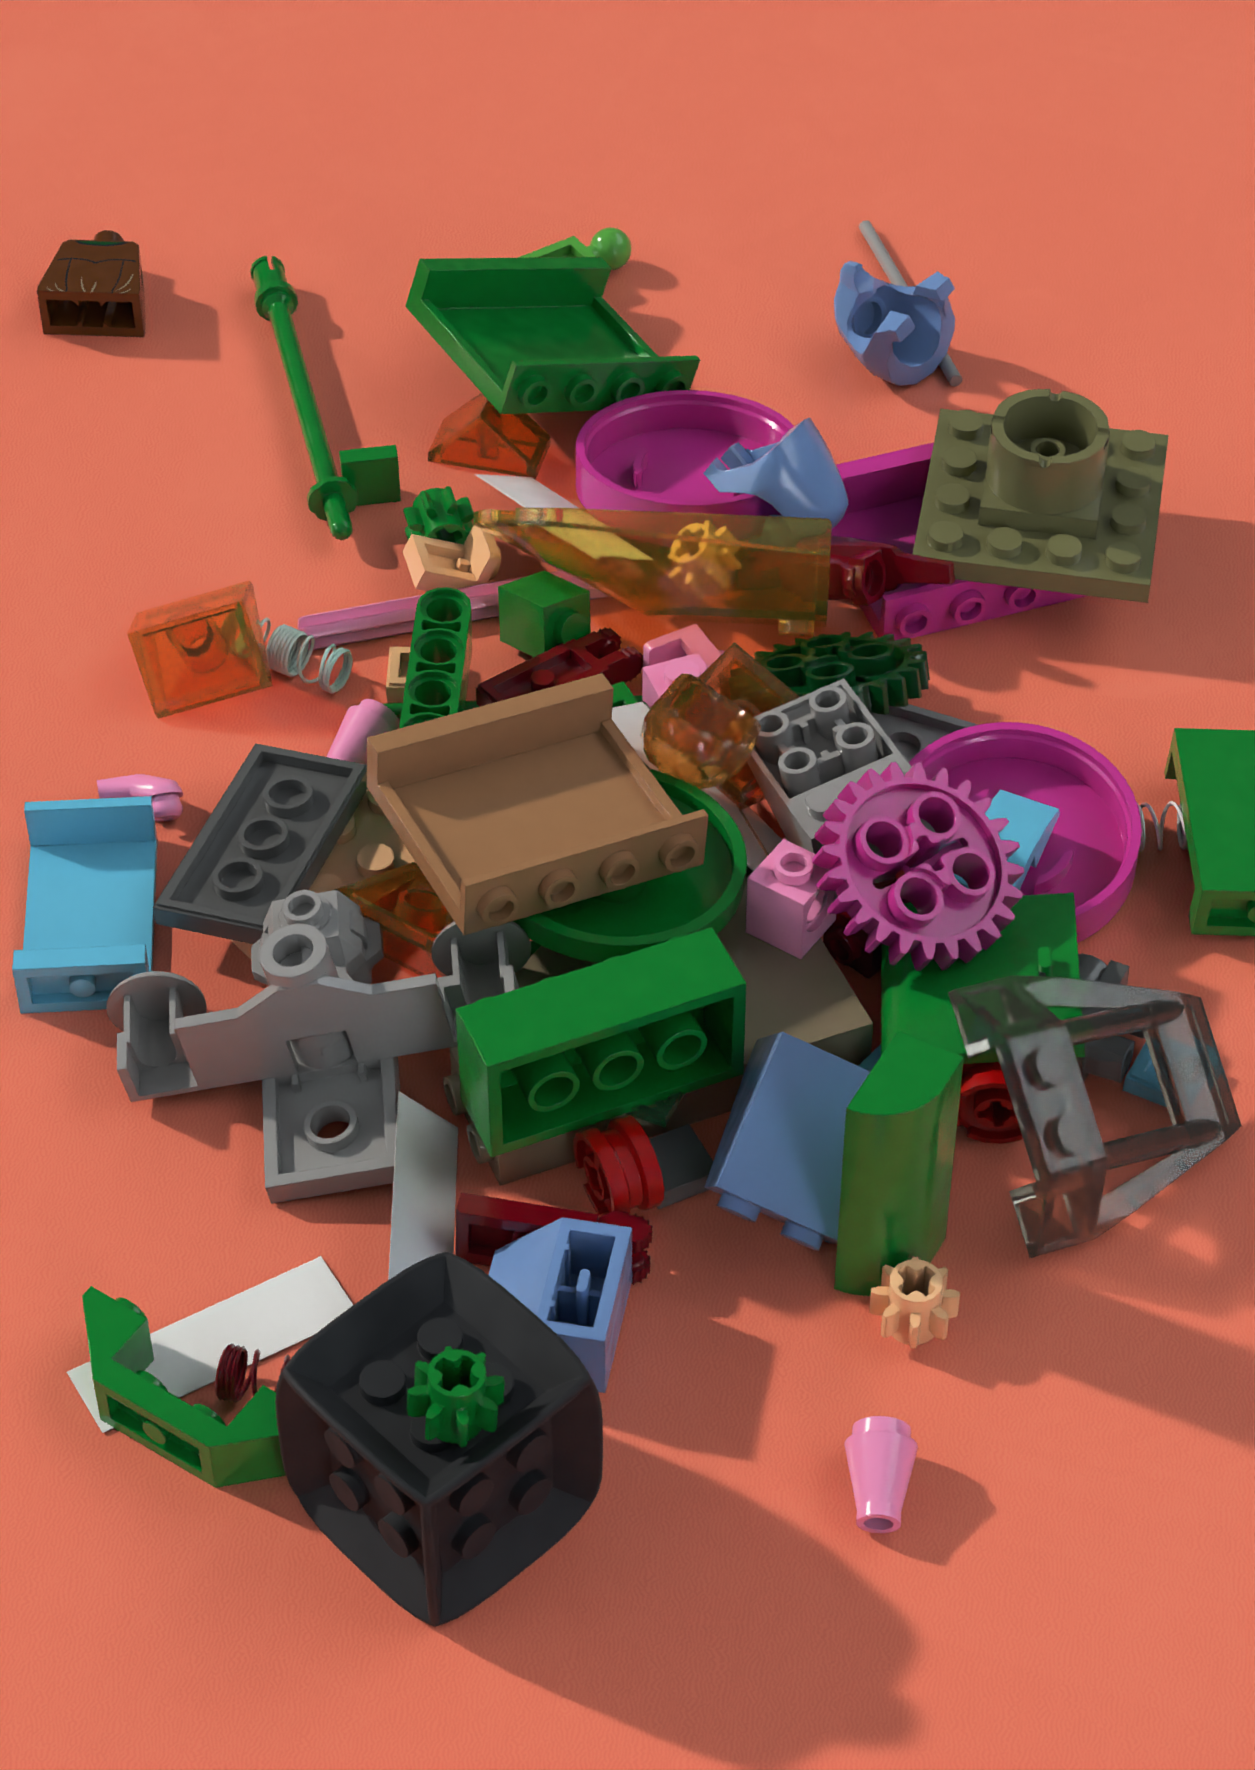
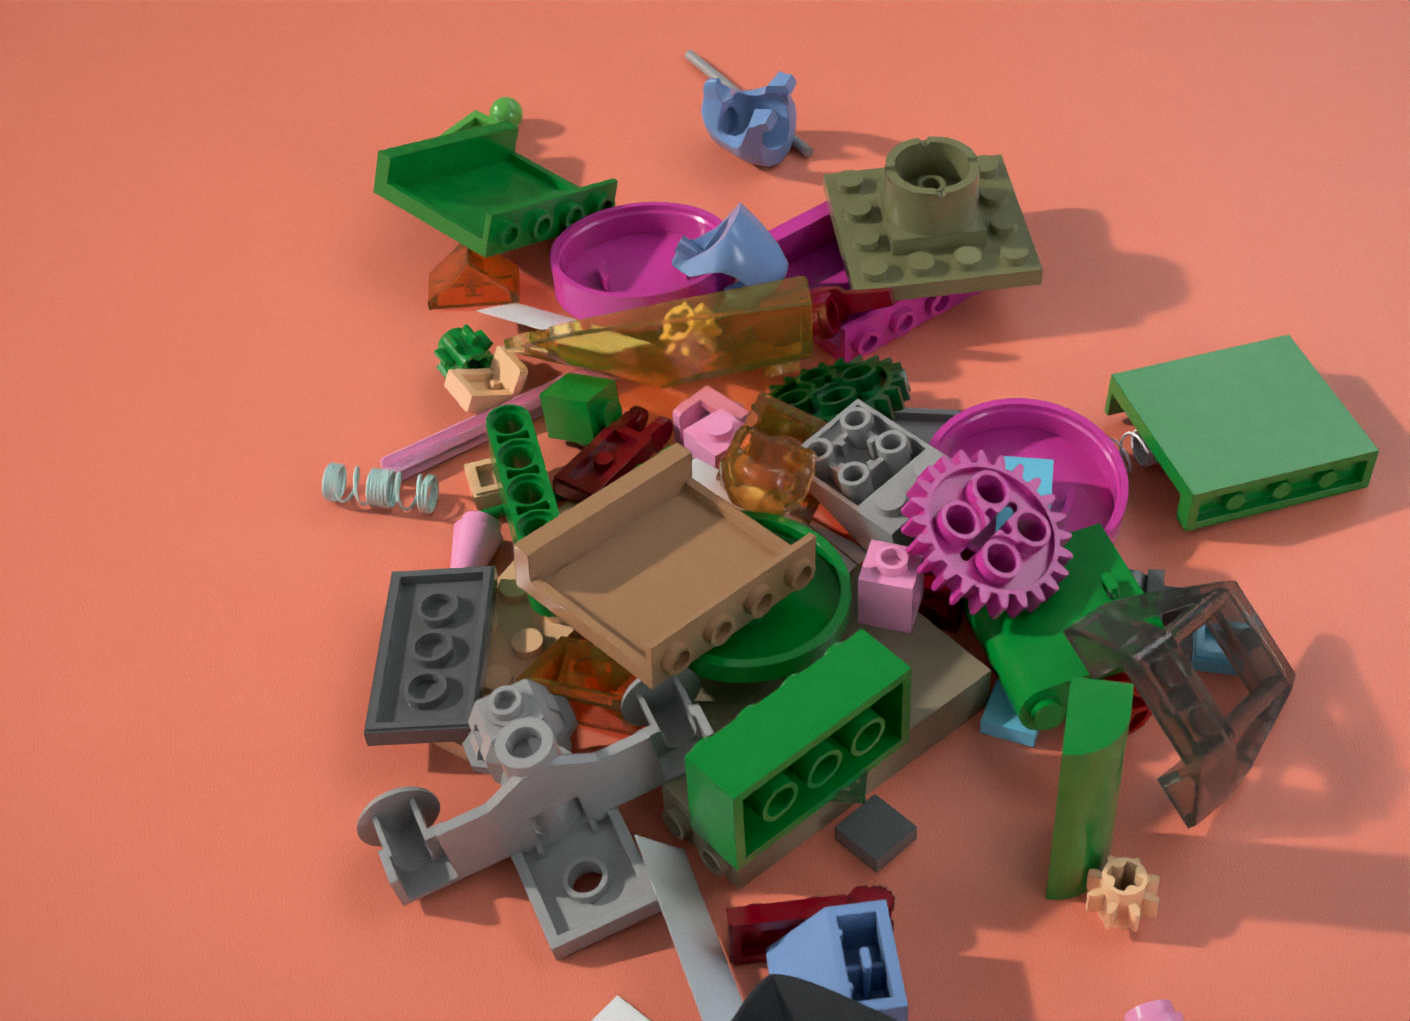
camera: 15 degrees left, 0 degrees up
(86, 901) = (299, 745): medium azure panel -> none
(94, 289) = (107, 236): reddish brown torso -> none
(164, 793) = (306, 634): bright pink arm -> none
(201, 649) = (313, 505): clear orange slope -> none
(276, 301) = (259, 213): green bar -> none
(373, 473) = (392, 331): green tile -> none
(619, 1167) = (841, 848): red wheel -> none
(787, 1139) = (984, 782): medium blue slope -> none

